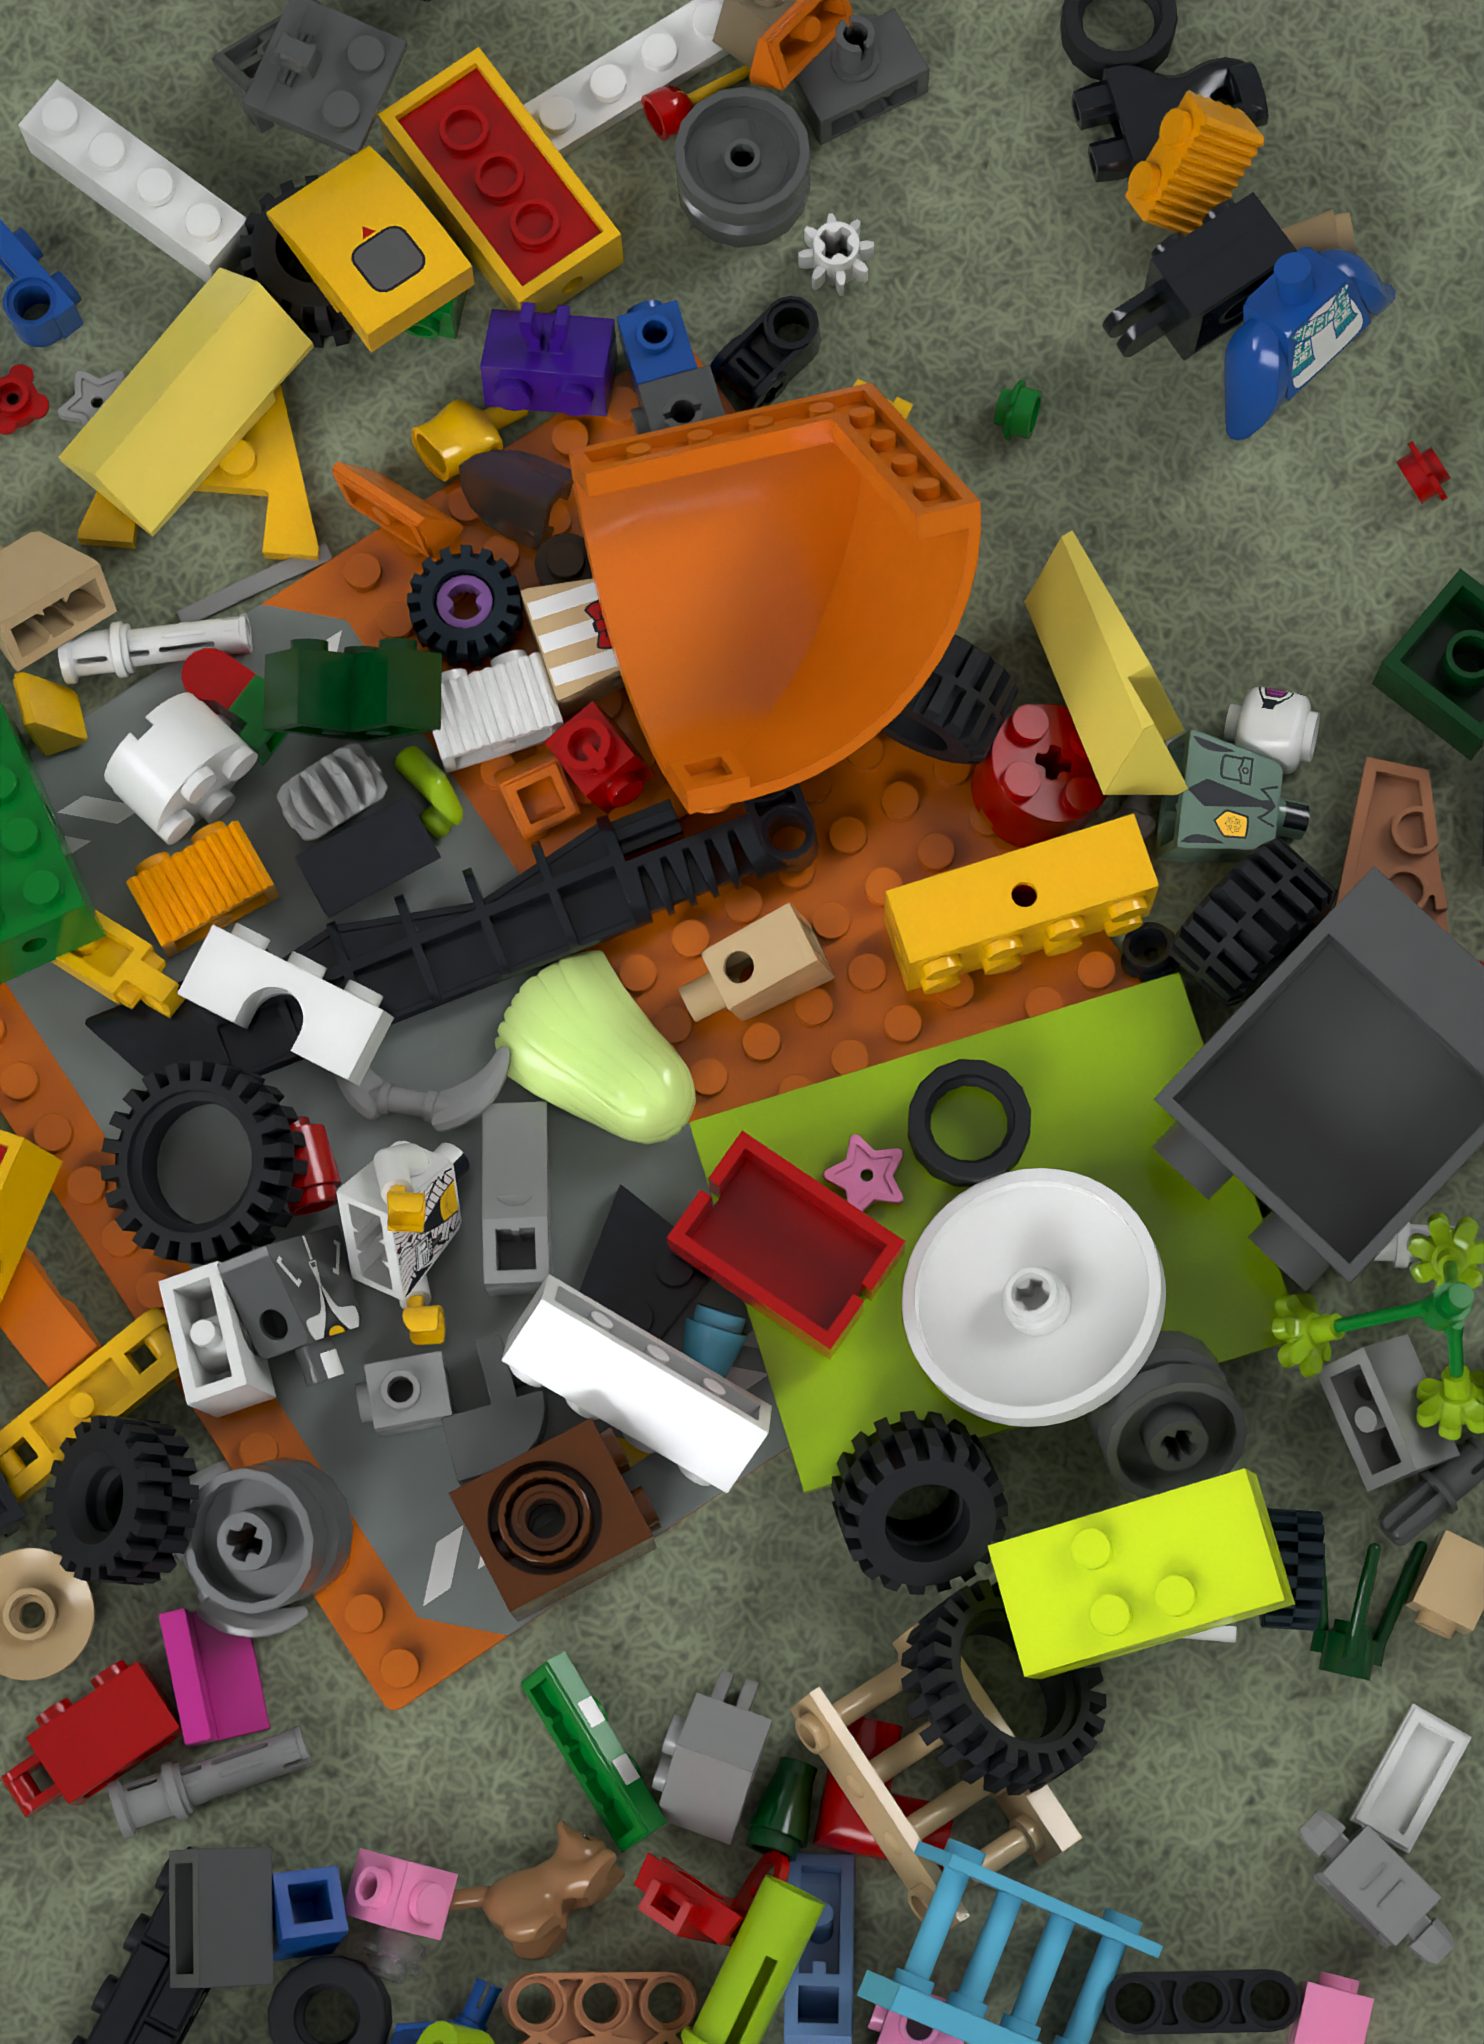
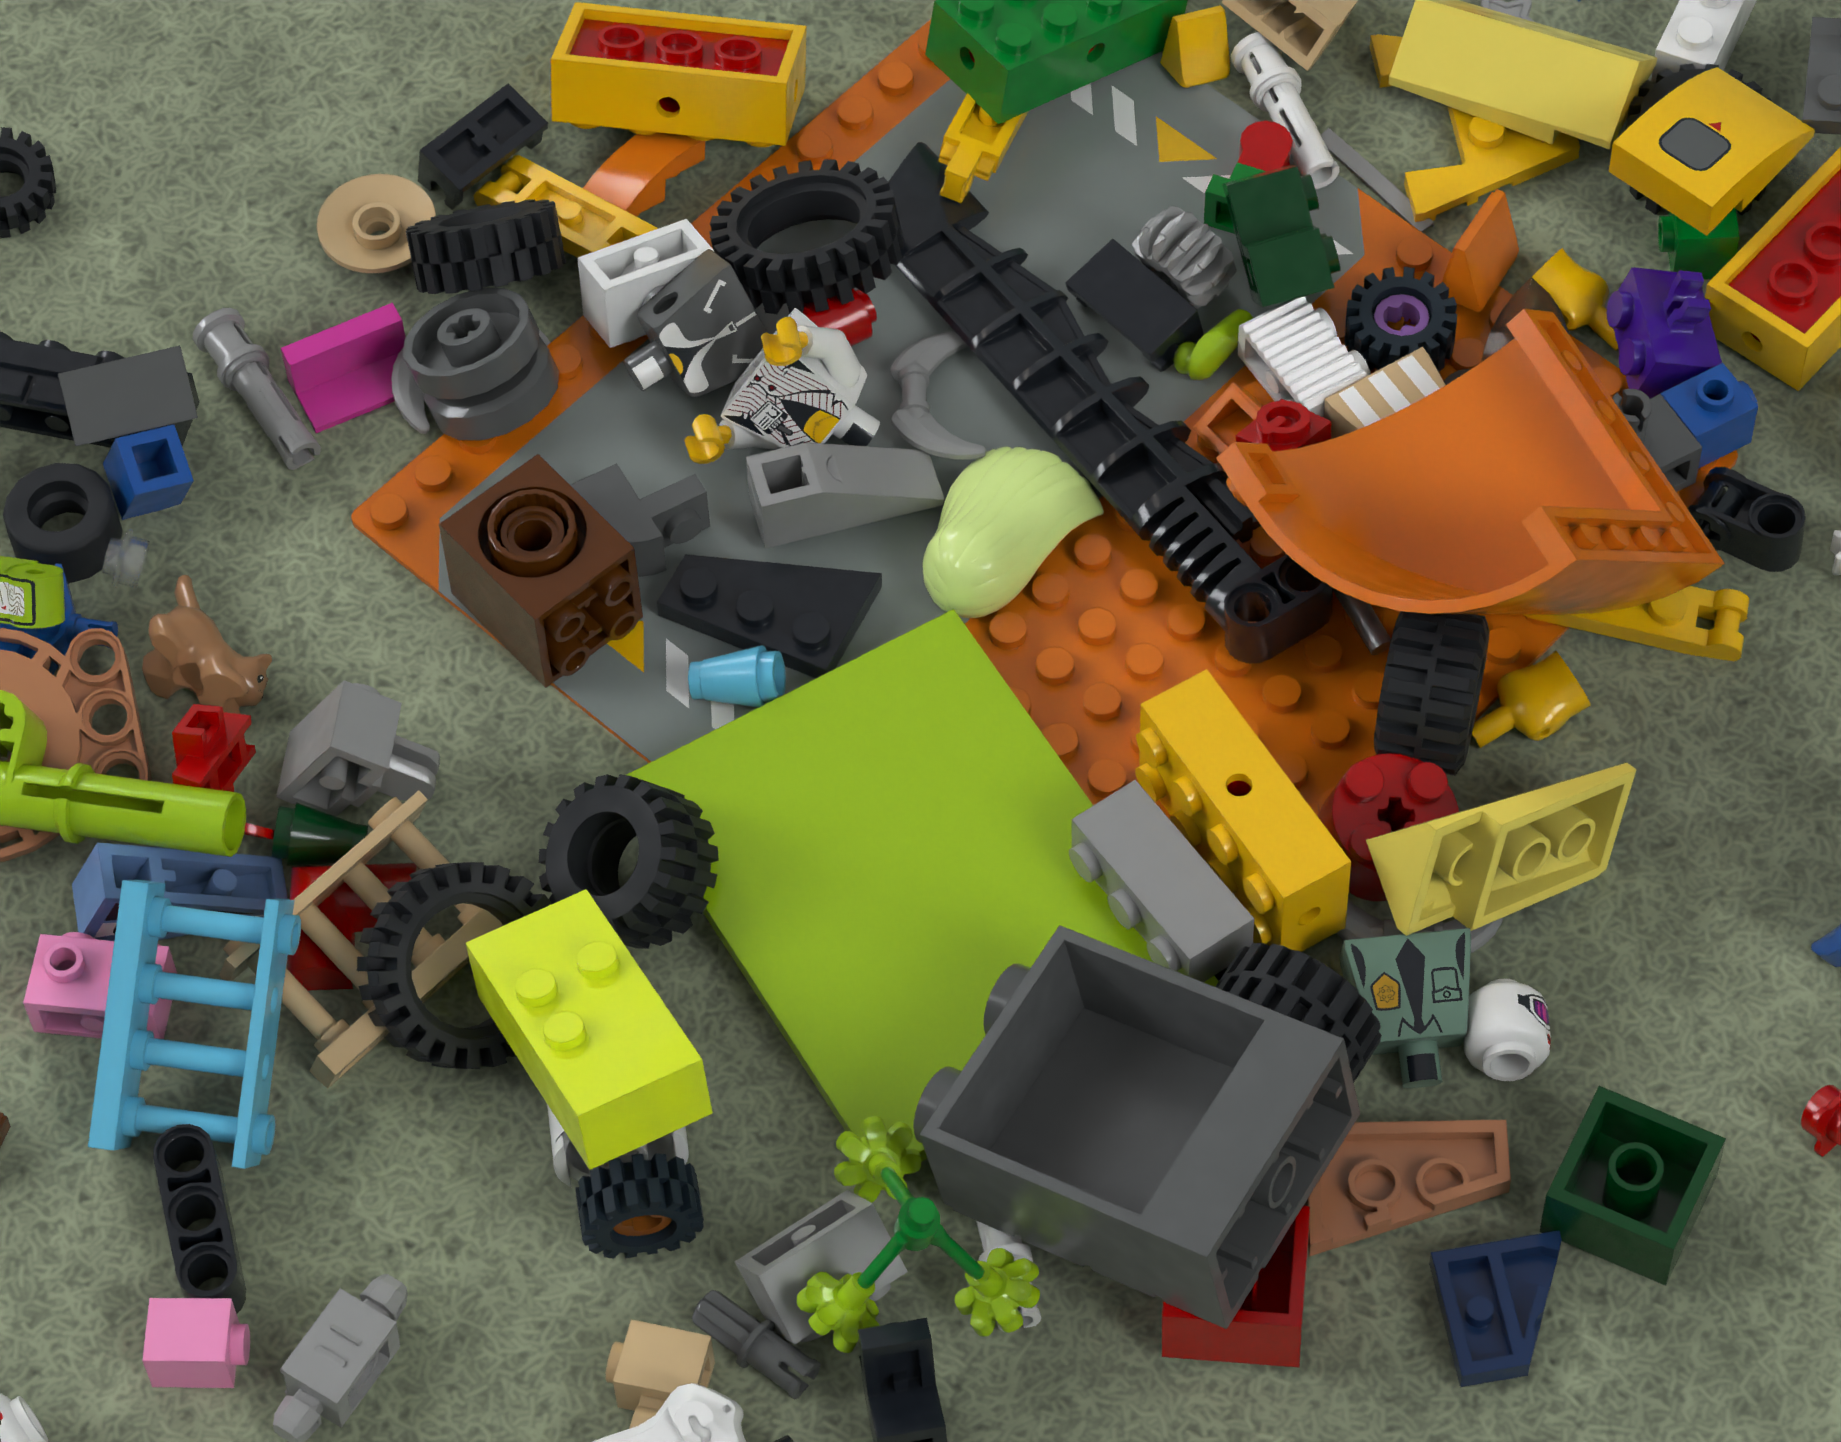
camera: 75 degrees right, 20 degrees down
(95, 1738) = (273, 290): red brick -> none
(180, 767) = (1169, 136): white brick -> none
(201, 886) = (1068, 190): light orange brick -> none
(238, 975) = (965, 299): white arch -> none
(400, 1894) = (179, 540): bright pink brick -> none
(406, 1393) = (640, 444): light grey brick -> none
(593, 1751) = (363, 657): green plate -> none
(637, 1385) = (684, 604): white brick -> none
(784, 962) = (1121, 626): tan torso -> none
(786, 1245) = (842, 689): red piece -> none
(860, 1158) = (933, 770): bright pink plate -> none
(973, 1074) = (1011, 782): black tyre -> none
(1018, 410) = (1771, 737): green plate -> none
(1034, 1297) = (848, 901): white dish -> none
(1075, 1000) = (1159, 884): none -> light grey brick
(1171, 1420) = (768, 1049): dark grey wheel -> none
(1349, 1645) = (580, 1289): dark green plant -> none
(1410, 1778) = (459, 1380): white tile -> none

